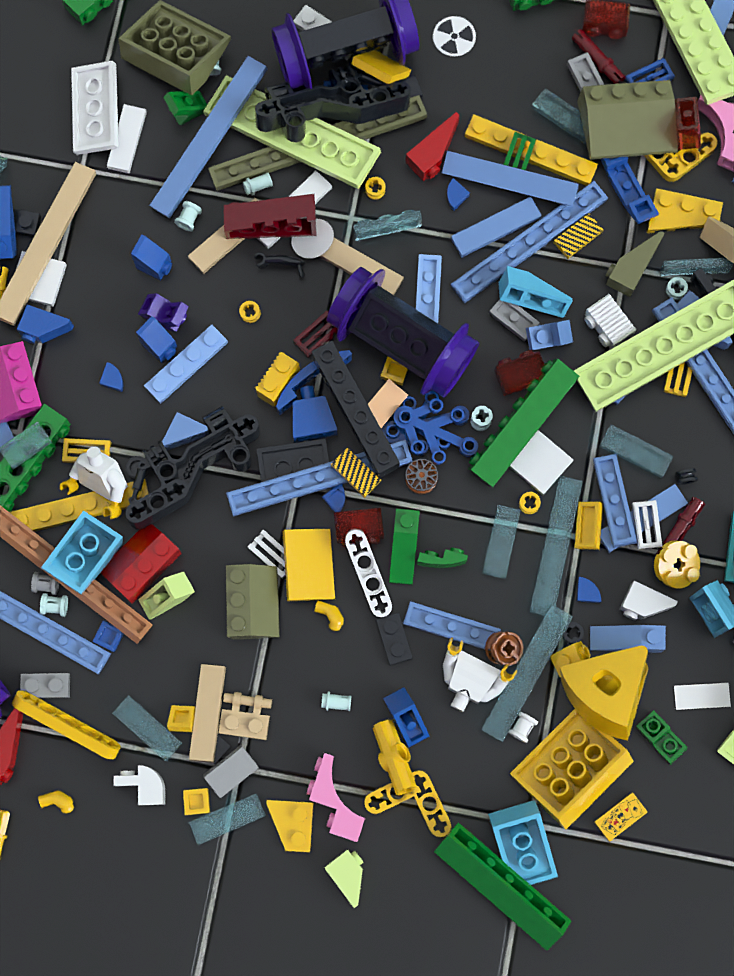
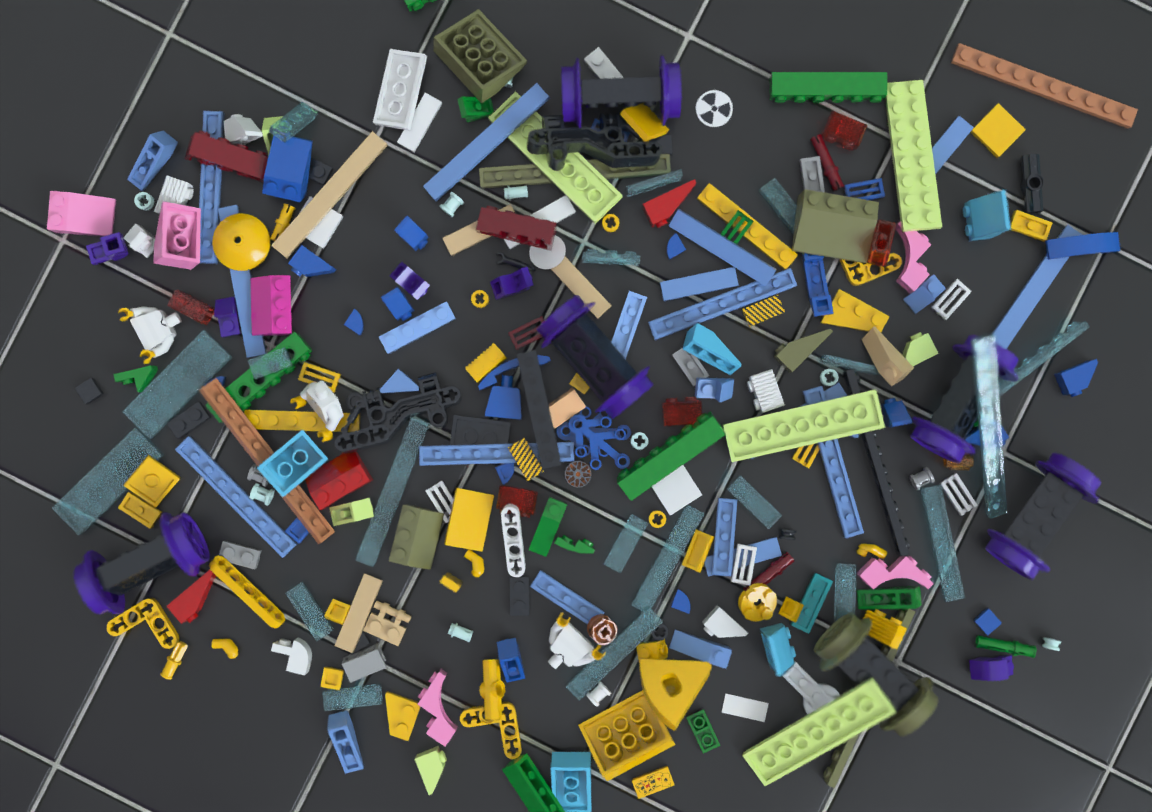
camera: 15 degrees right, 10 degrees up
(208, 560) = (392, 492): none -> clear light blue tile
(234, 875) = (345, 741): none -> medium blue slope
(284, 283) = (512, 283): none -> dark purple brick
(309, 641) = (451, 582): none -> yellow tile
(411, 130) = (654, 182): none -> clear light blue tile
(718, 562) = (791, 609): none -> yellow tile

